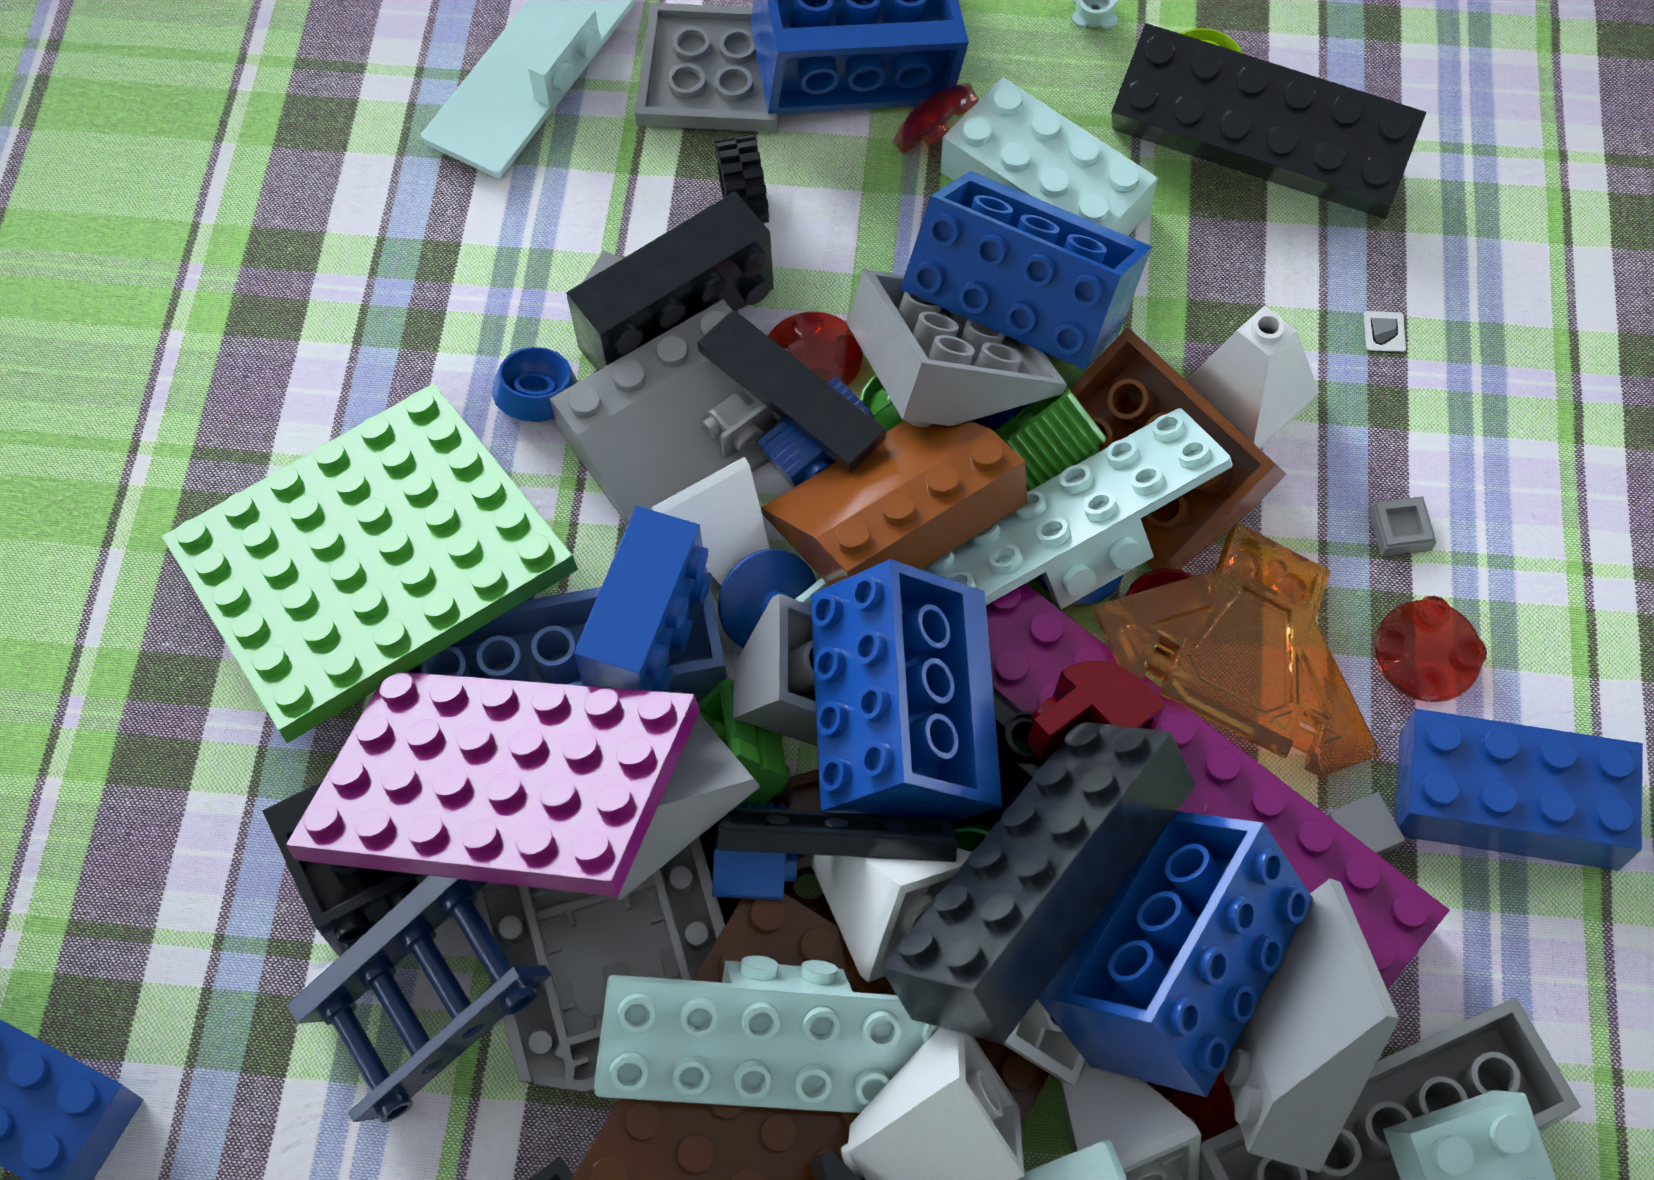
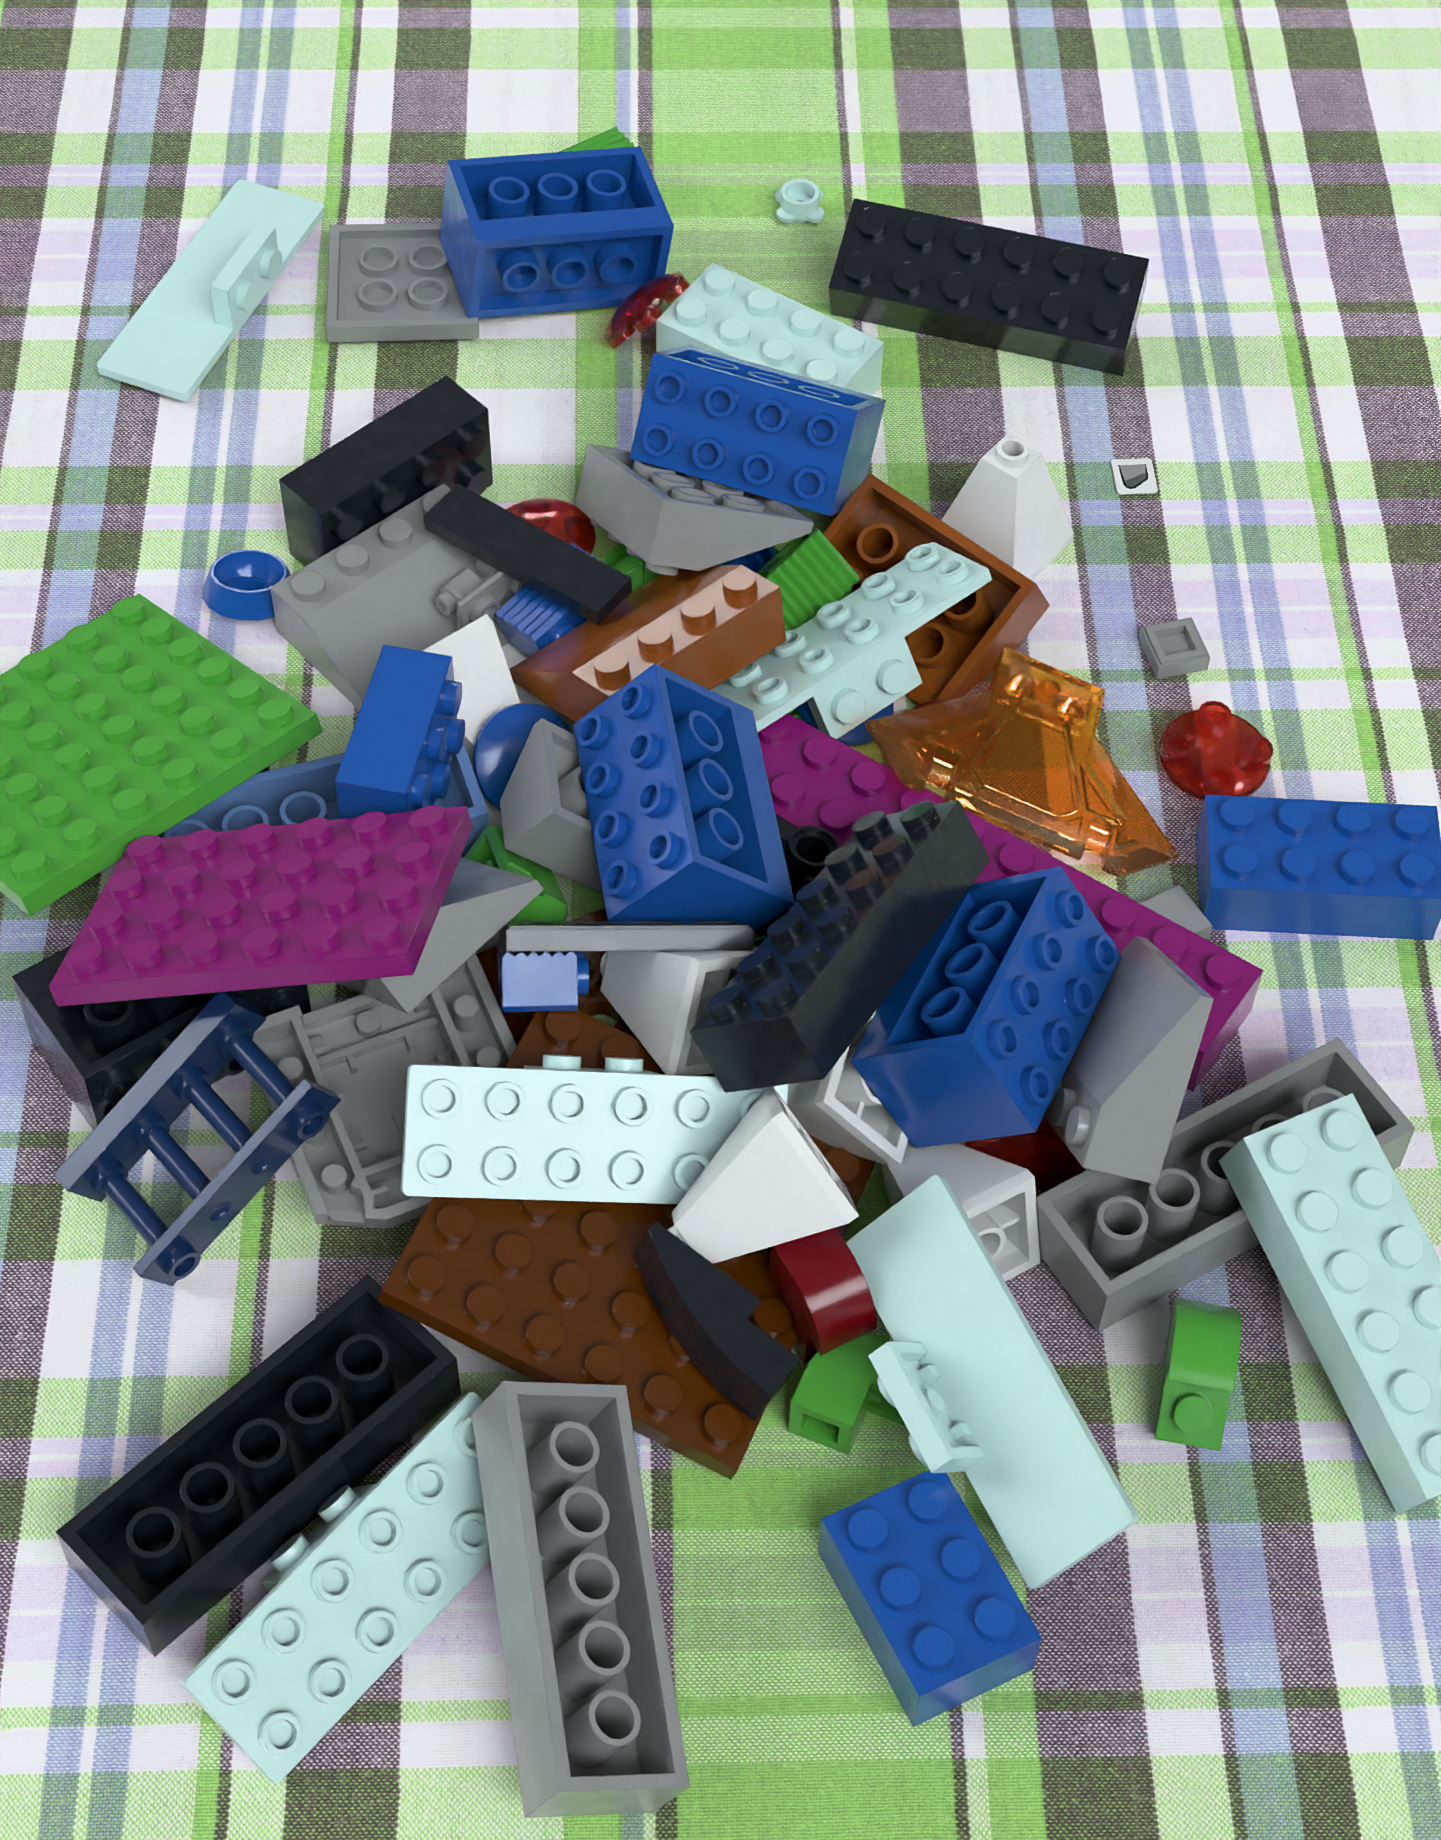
camera: 10 degrees left, 10 degrees down
(742, 173) = (447, 355): black tyre -> none
(1092, 694) = (866, 789): dark red brick -> none

